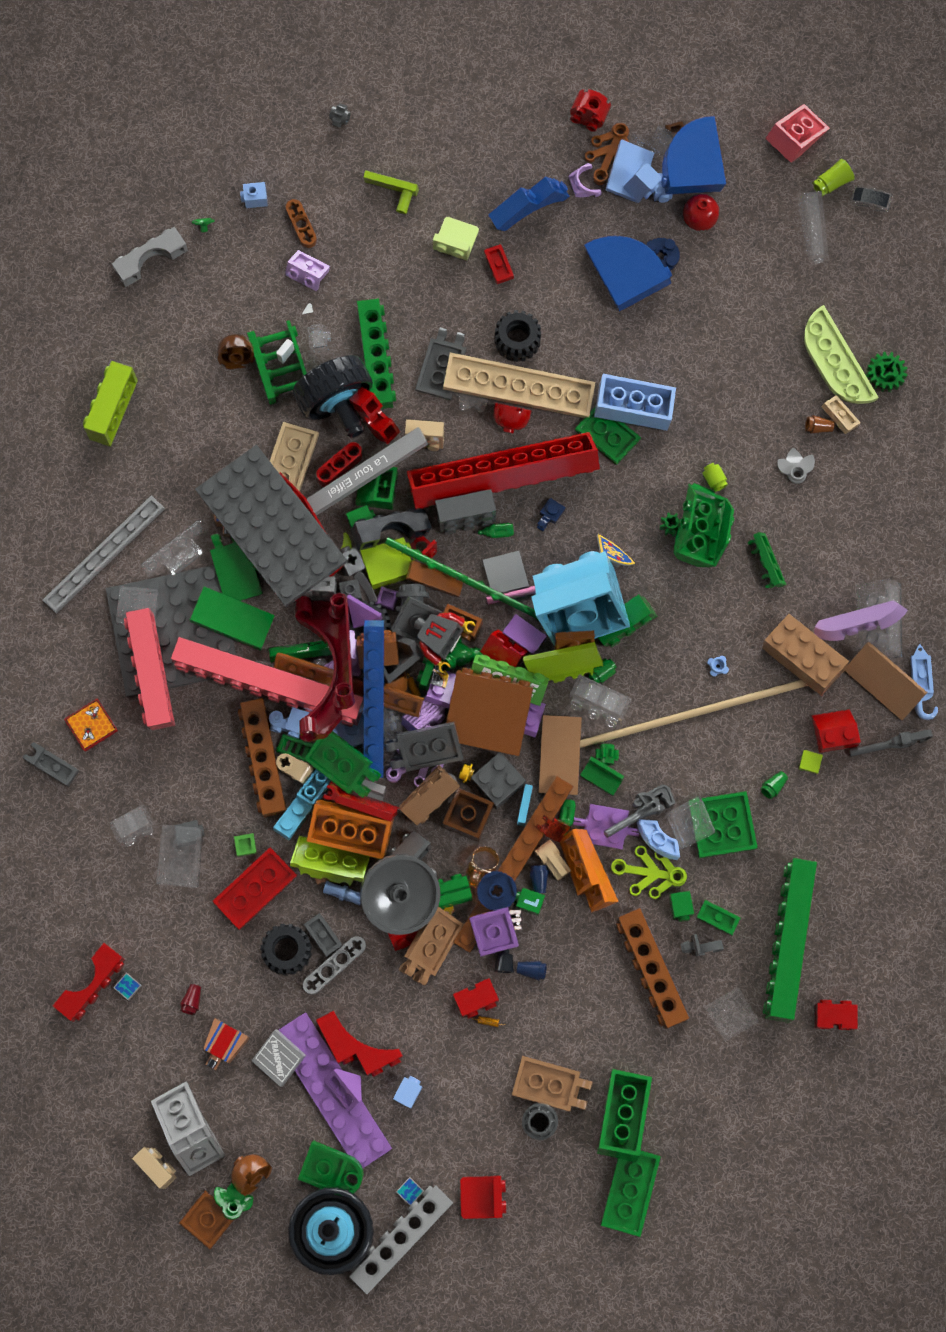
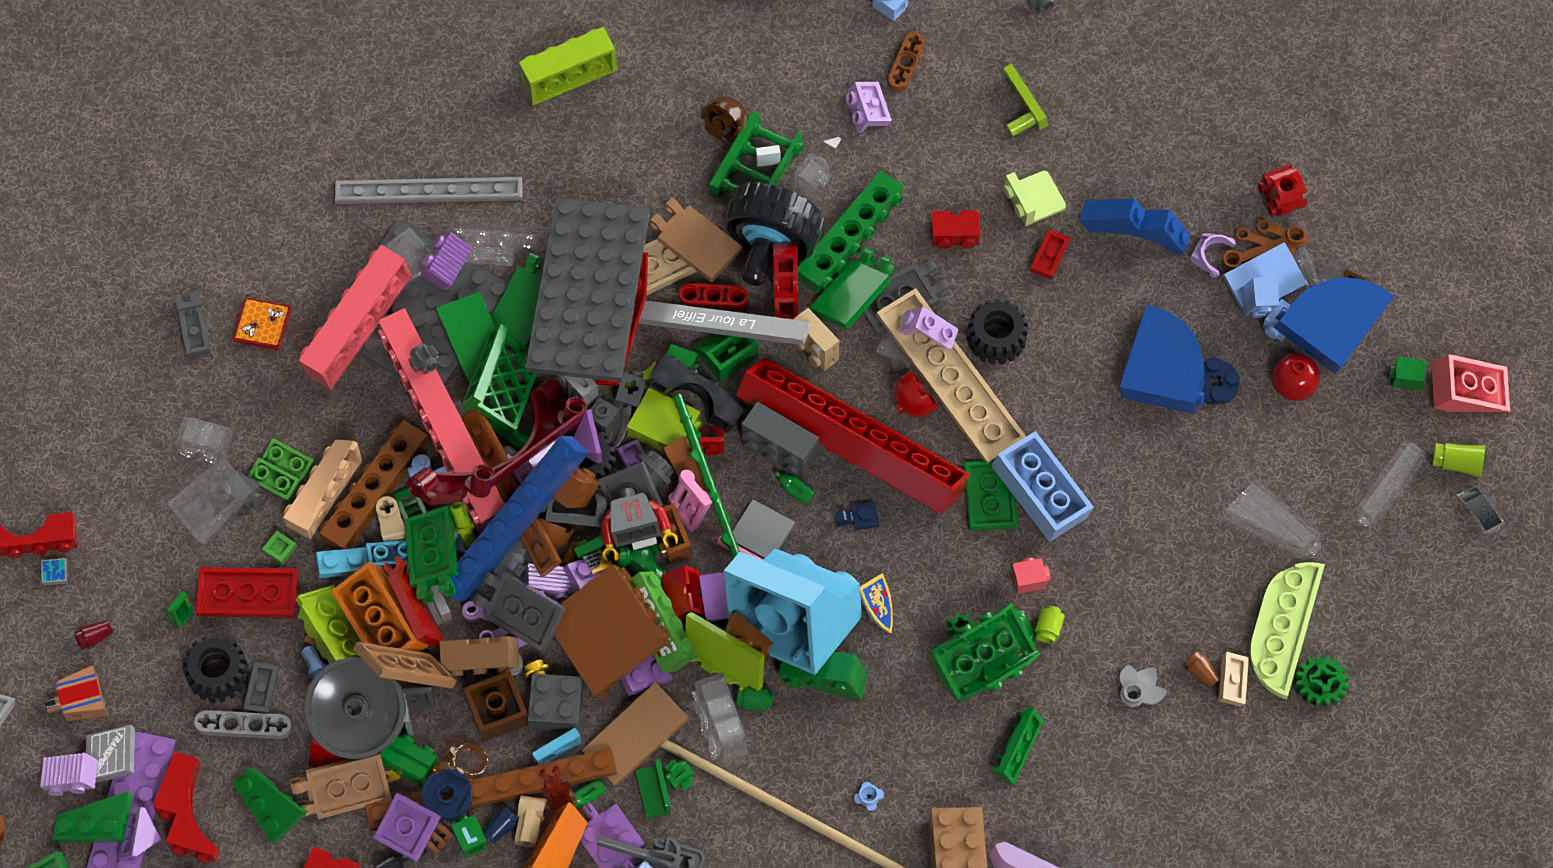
camera: 45 degrees right, 10 degrees down
(165, 586) = (446, 260): none -> medium lavender brick
(196, 799) = (281, 469): none -> bright green slope
(225, 656) = (424, 358): none -> dark grey gear
(227, 938) = (179, 611): none -> green slope
(234, 786) = (323, 487): none -> light nougat wedge
(260, 628) = (483, 374): none -> green fence
(268, 1092) = (68, 773): none -> lavender brick
(295, 439) = (695, 240): none -> medium nougat tile
(313, 1104) = (96, 822): none -> green wing
(344, 731) = (464, 525): none -> lime pin
(401, 996) = (268, 805): none -> green wing
(402, 843) = (404, 665): none -> medium nougat tile
(413, 386) = (853, 290): none -> green tile
(431, 299) = (955, 229): none -> red brick
(458, 593) = (695, 502): none -> bright pink plate
(481, 366) = (930, 325): none -> lavender bracket
(677, 459) = (1030, 575): none -> coral brick
(758, 155) = (1408, 373): none -> green brick
(771, 306) = (1273, 521): none -> clear slope

